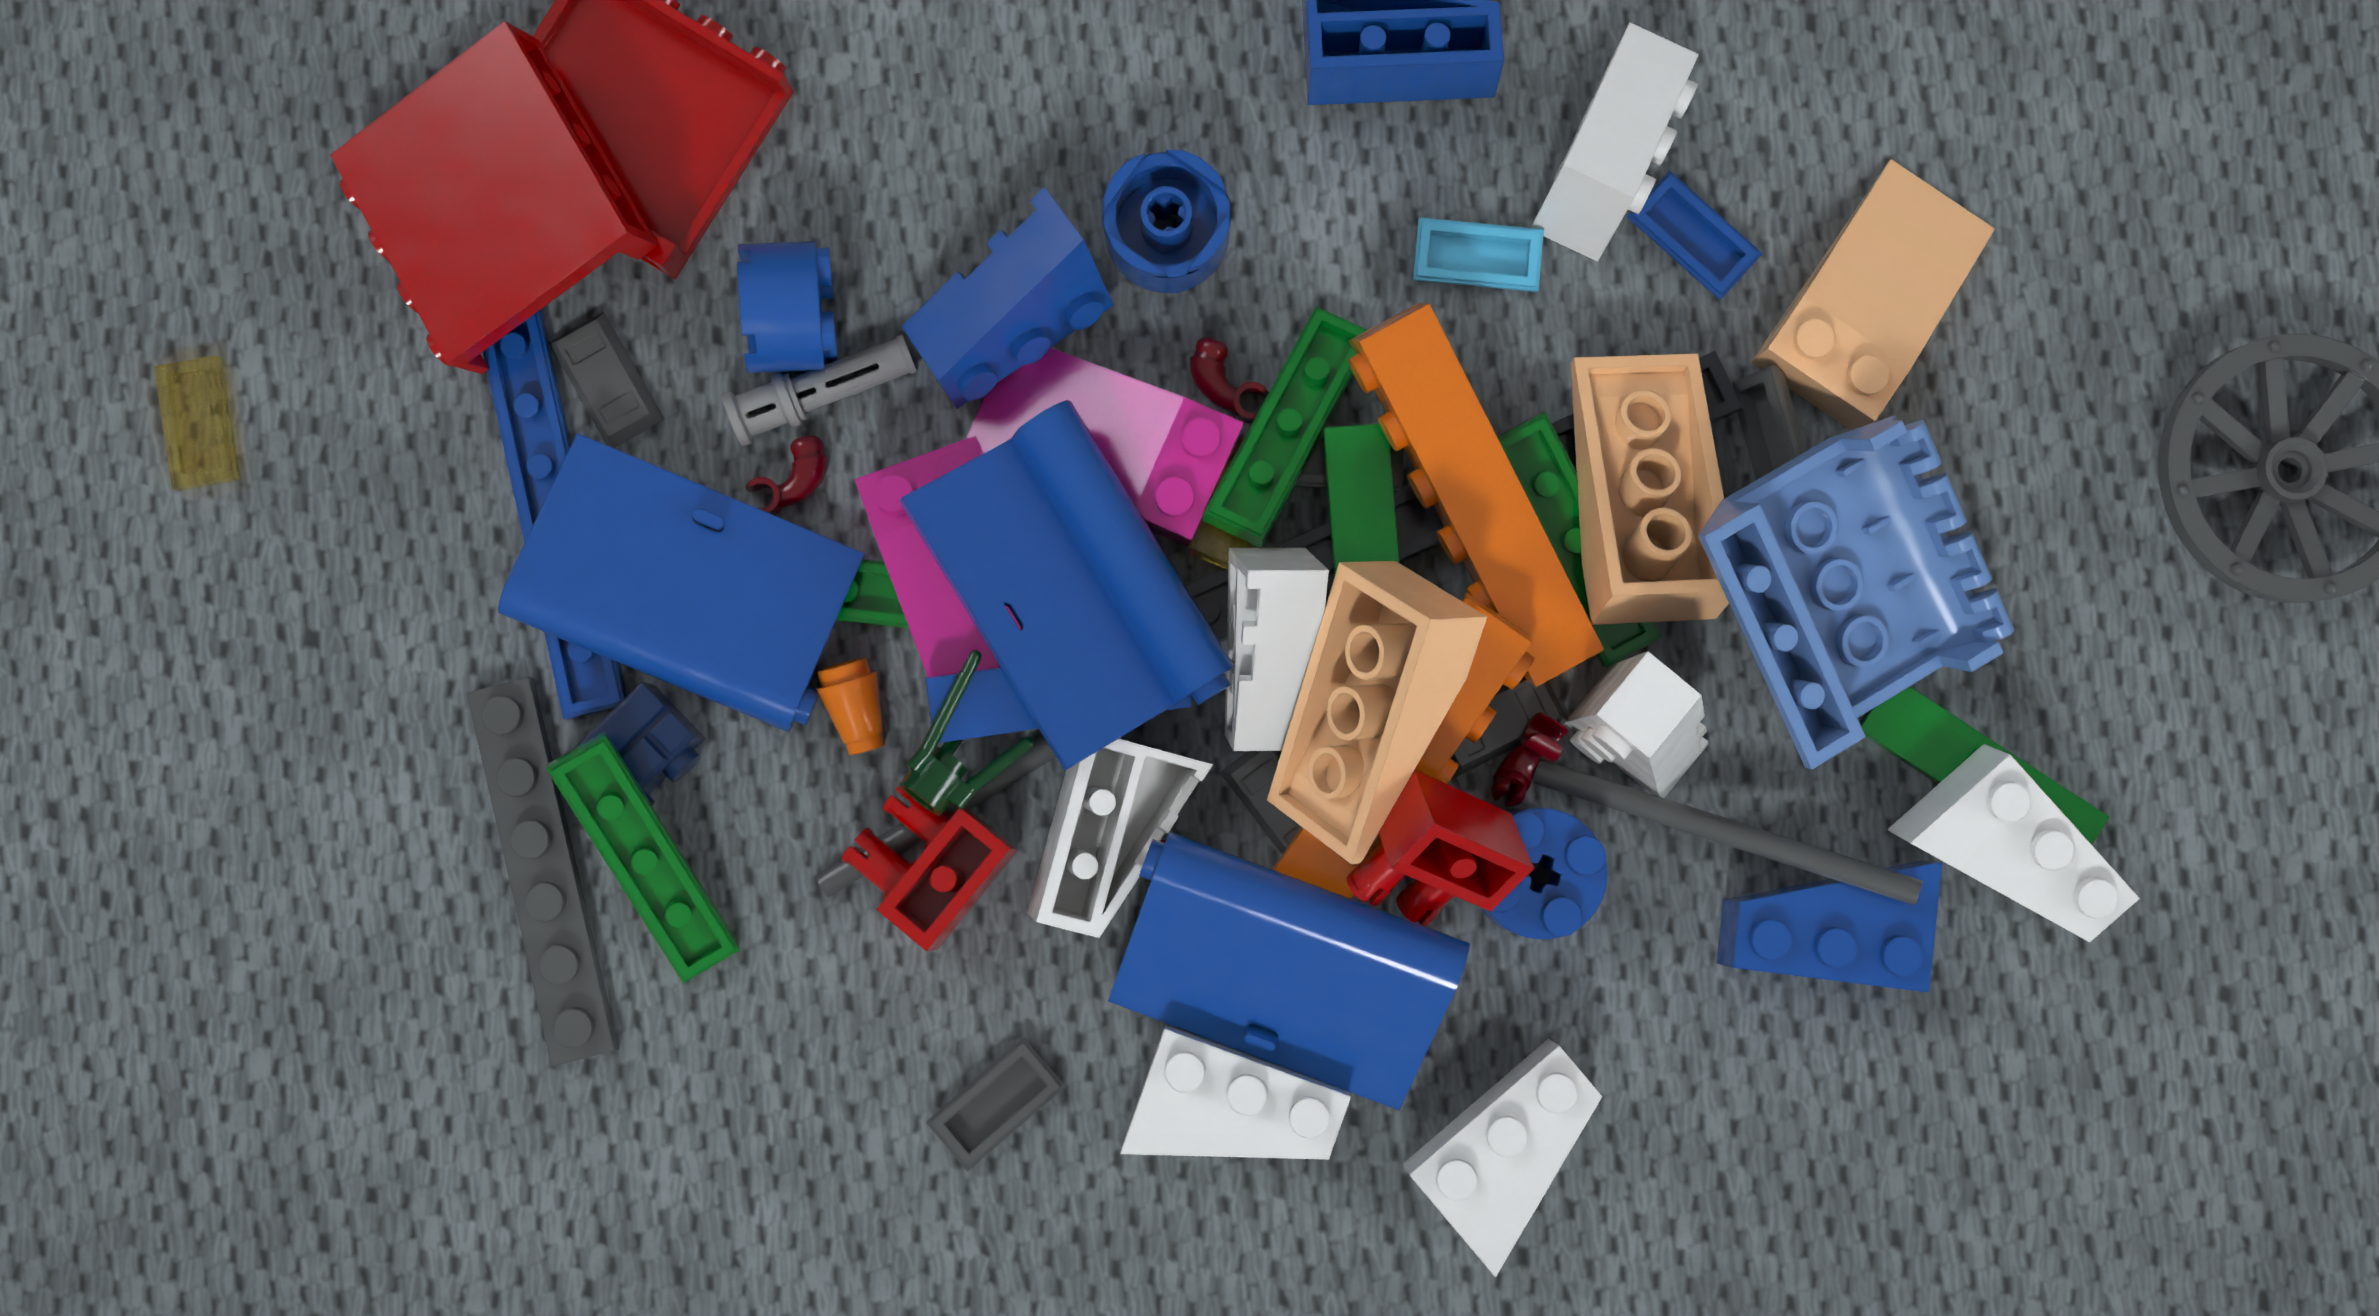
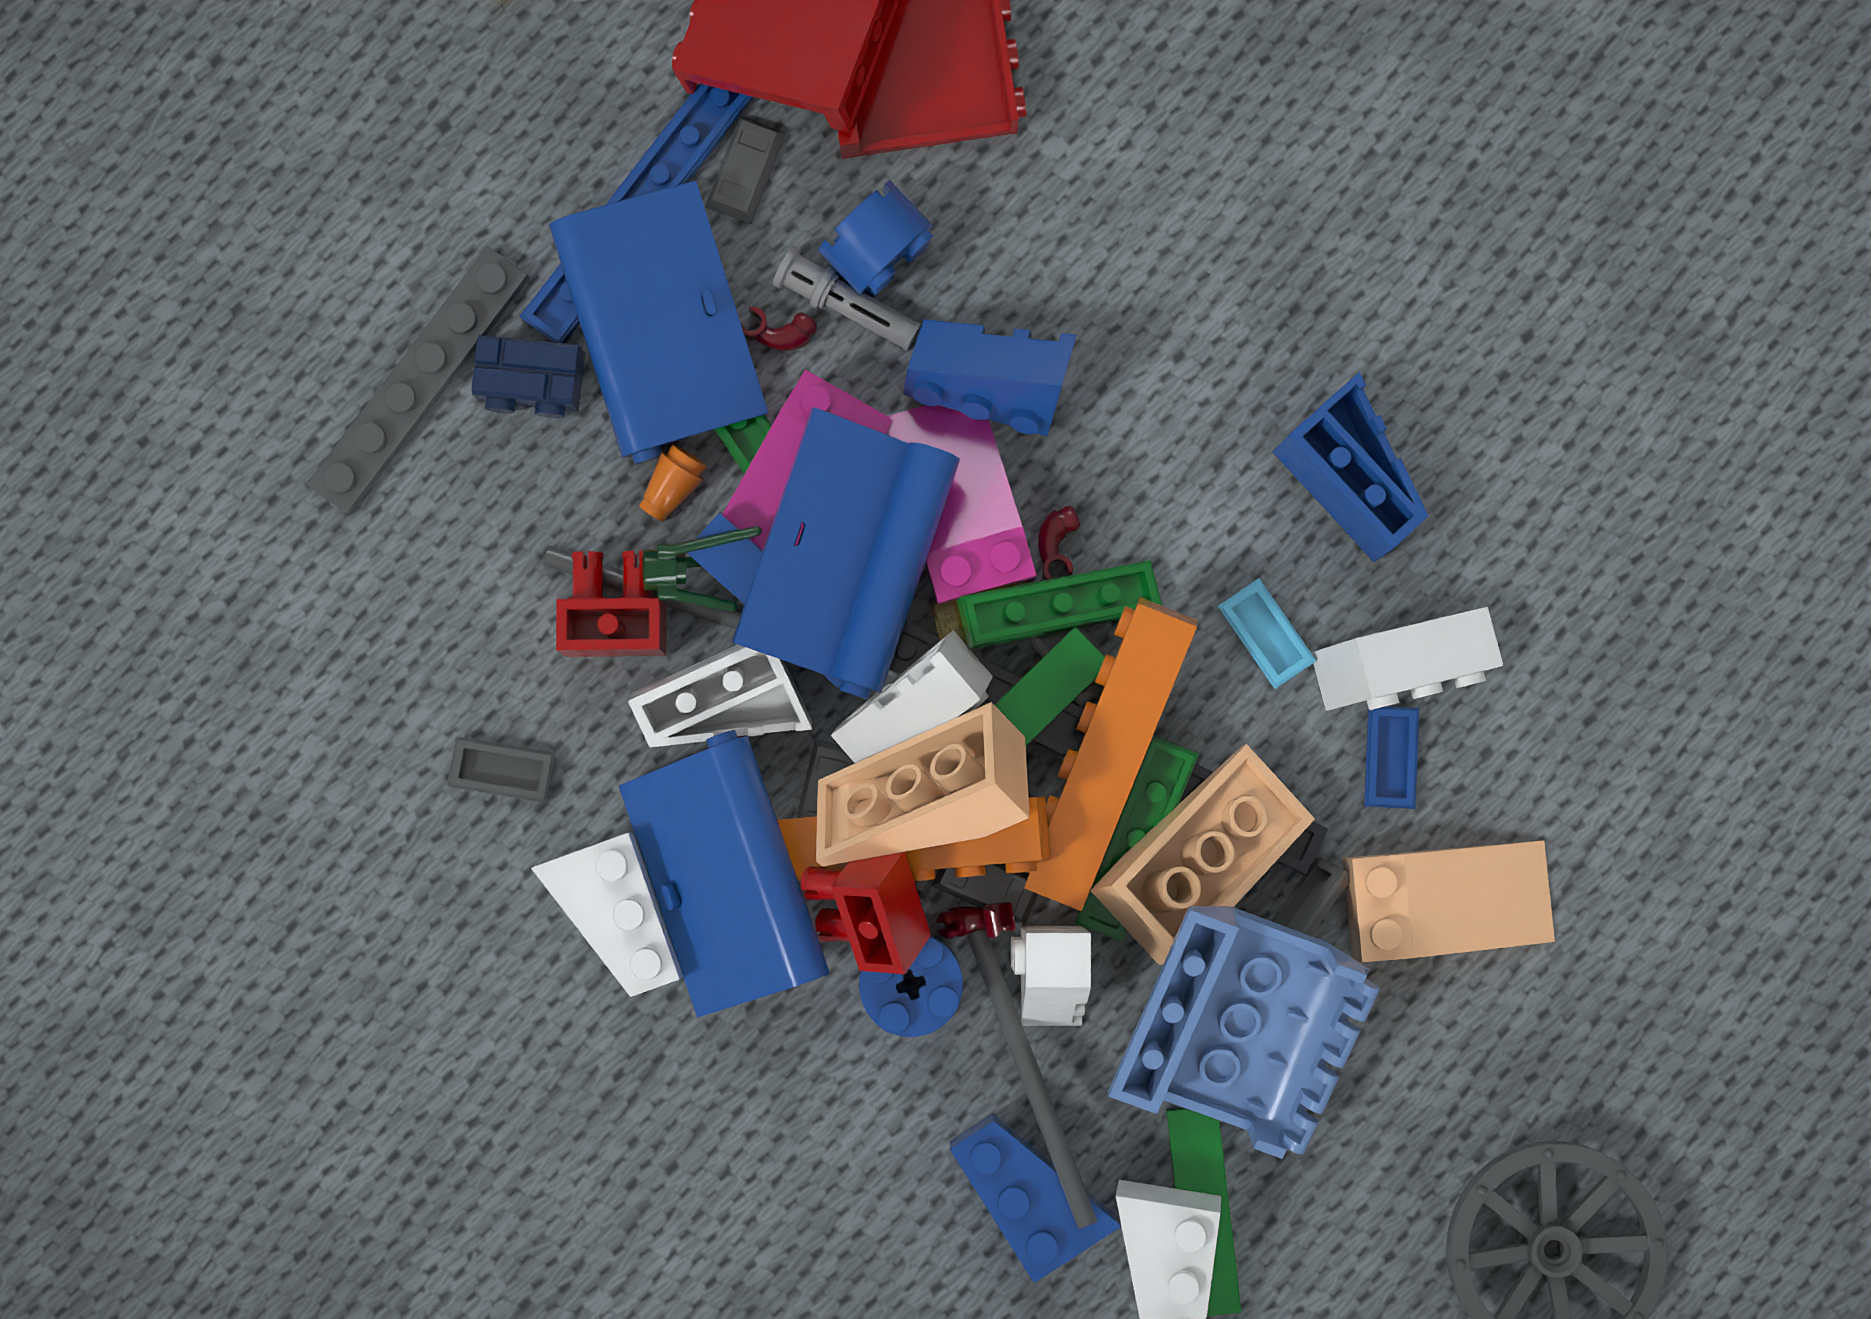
camera: 50 degrees right, 0 degrees up
(643, 856) = (474, 434): green tile -> none
(1159, 187) = (1143, 405): blue brick -> none
(1505, 1151) = (724, 1102): white wedge -> none

